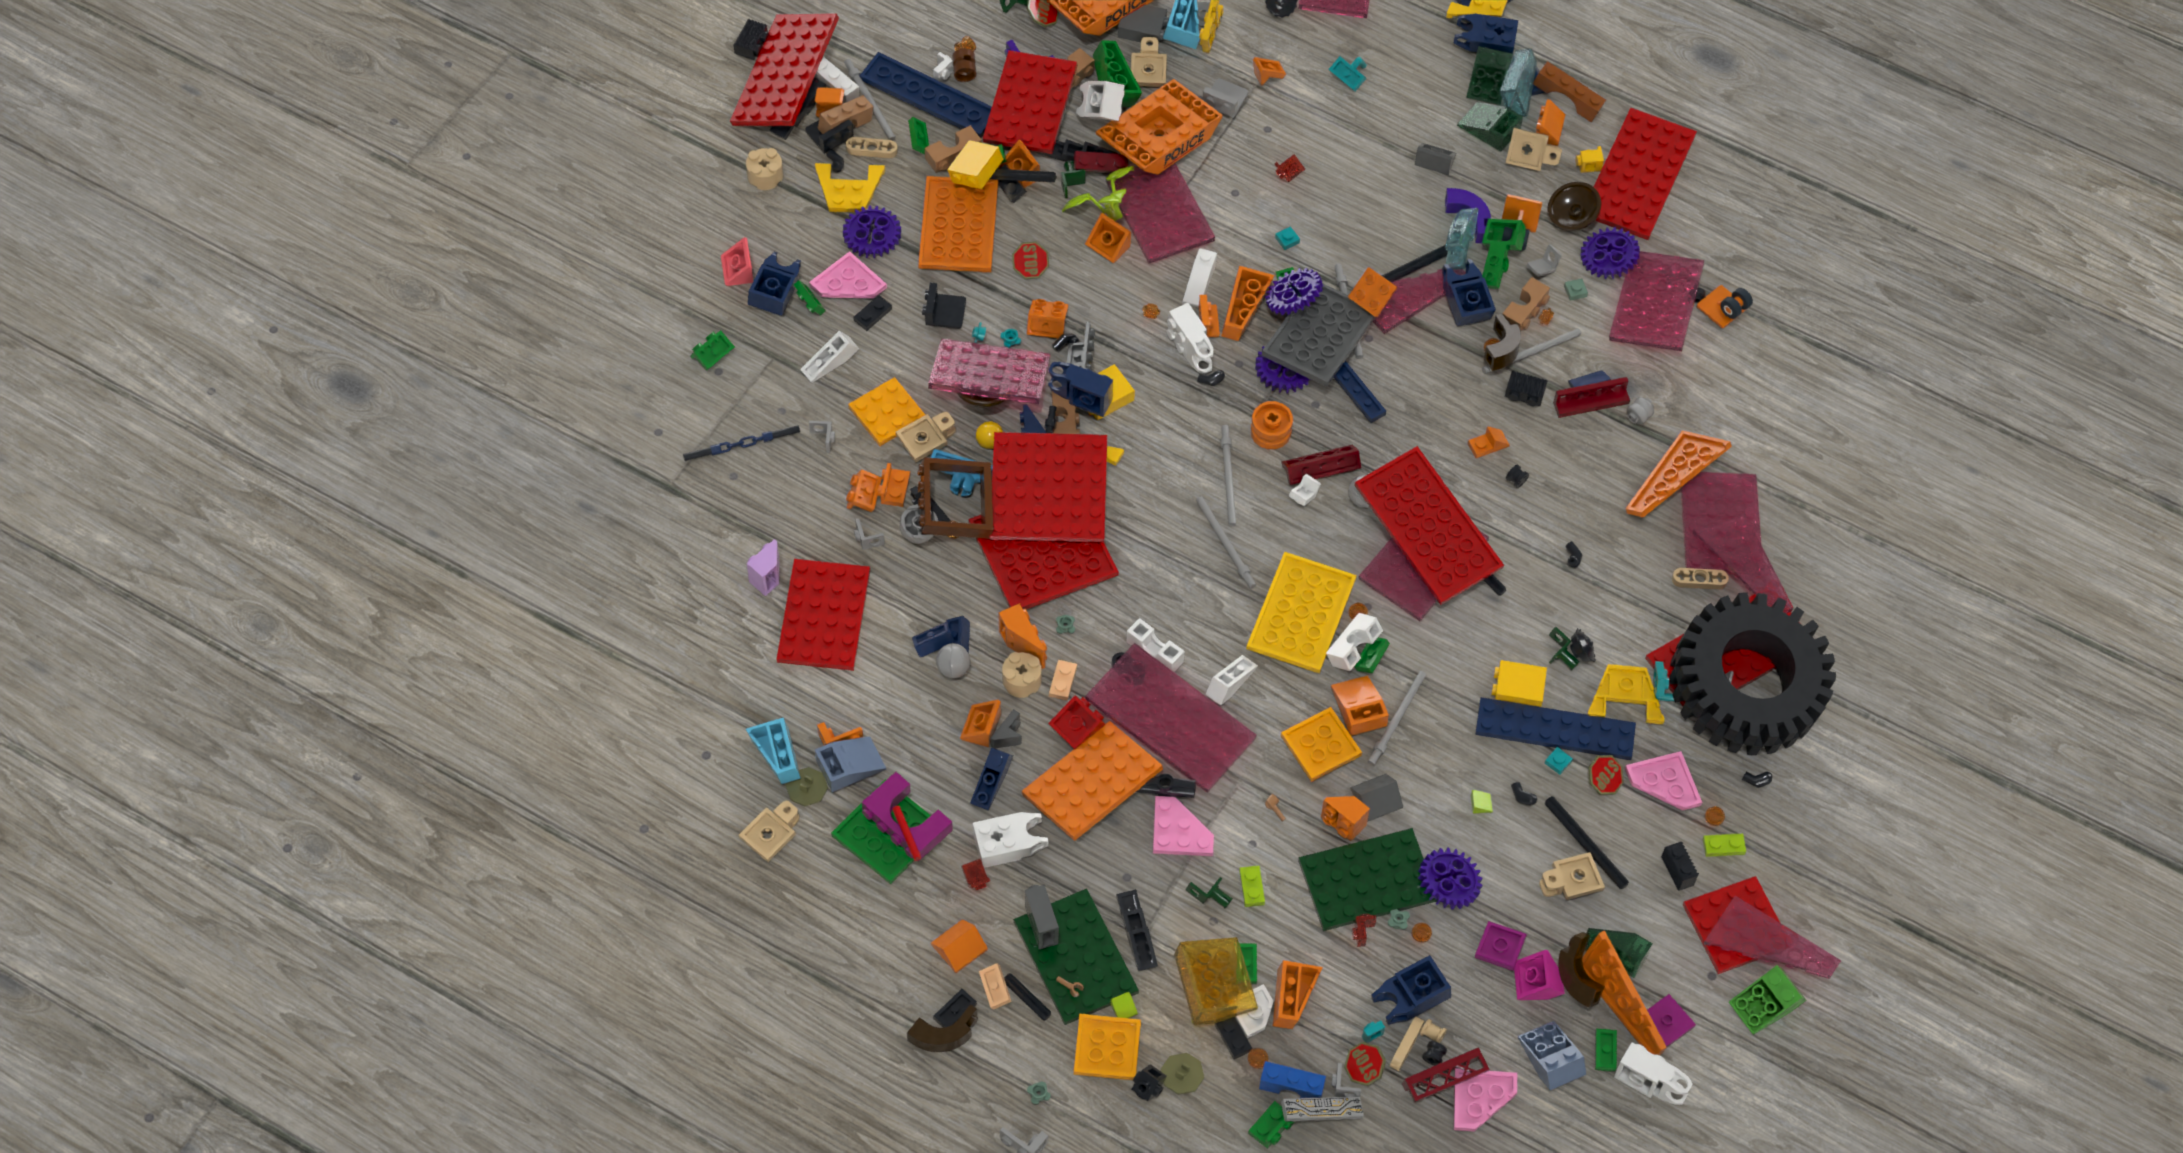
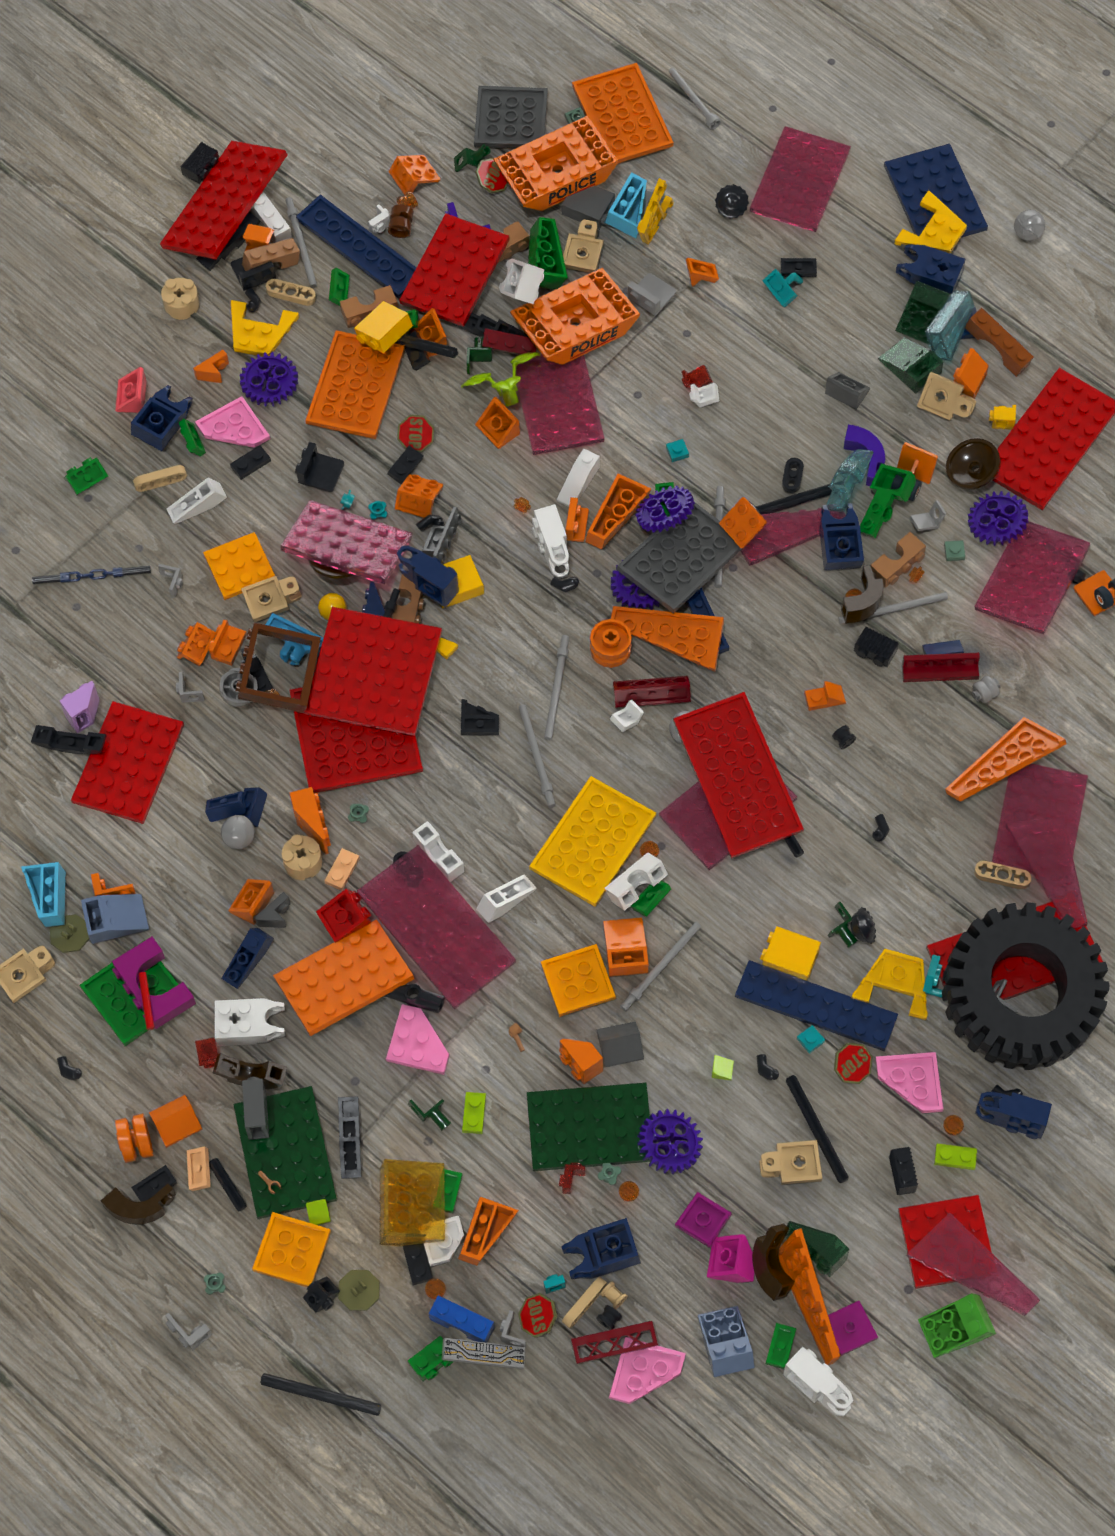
camera: 15 degrees right, 5 degrees up
(760, 604) = (68, 742): none -> black slope
(787, 341) = (160, 478): none -> tan beam
(812, 231) = (210, 368): none -> orange slope
(839, 918) = (67, 1071): none -> black arm
(926, 967) = (130, 1138): none -> orange wheel
(962, 17) = (411, 170): none -> orange bracket
(1013, 887) = (237, 1071): none -> dark brown arch
(1026, 291) = (405, 464): none -> black plate
(1160, 518) = (478, 720): none -> black wing
(1301, 183) = (704, 395): none -> white bracket
(1339, 405) = (682, 634): none -> orange wing
(1367, 51) = (801, 266): none -> black plate
(1404, 245) = (791, 476): none -> black plate
(1773, 793) = (1015, 1113): none -> dark blue brick

